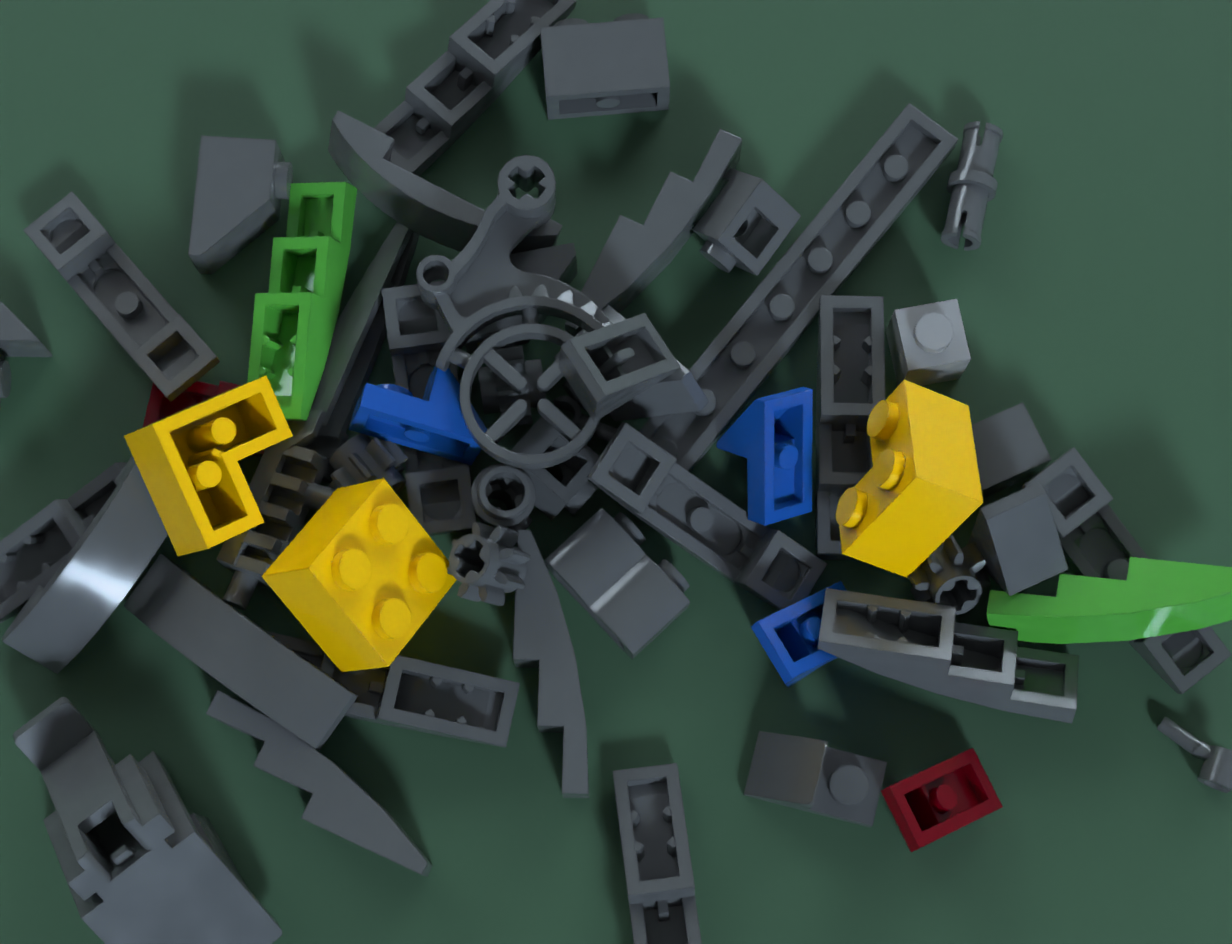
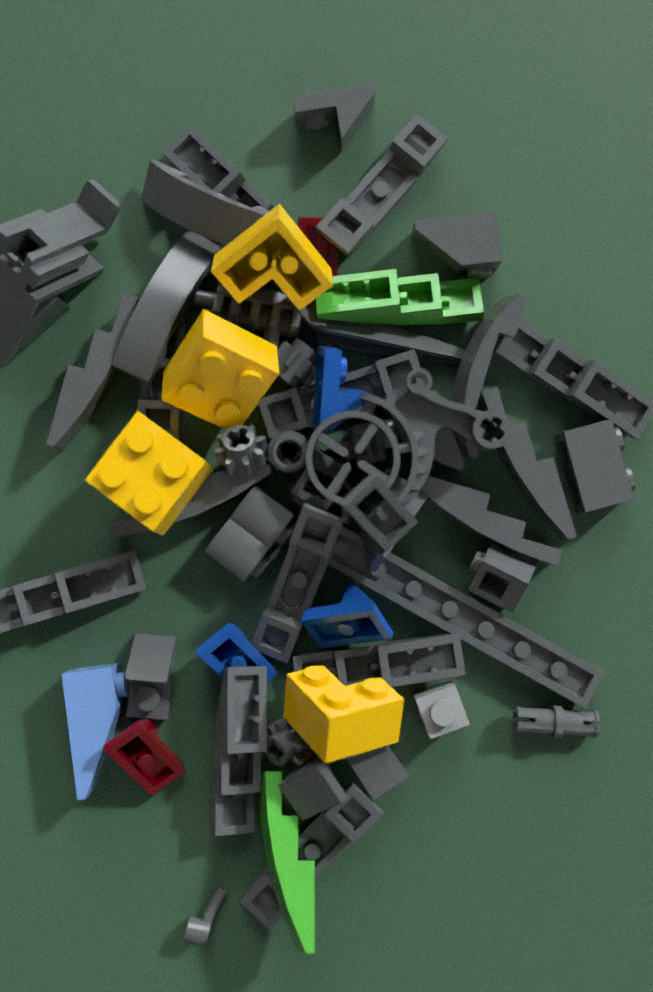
camera: 85 degrees right, 10 degrees up
(498, 705) = (149, 474): none -> yellow brick
(609, 153) = (535, 478): none -> dark grey slope
(858, 873) = (93, 709): none -> medium blue slope

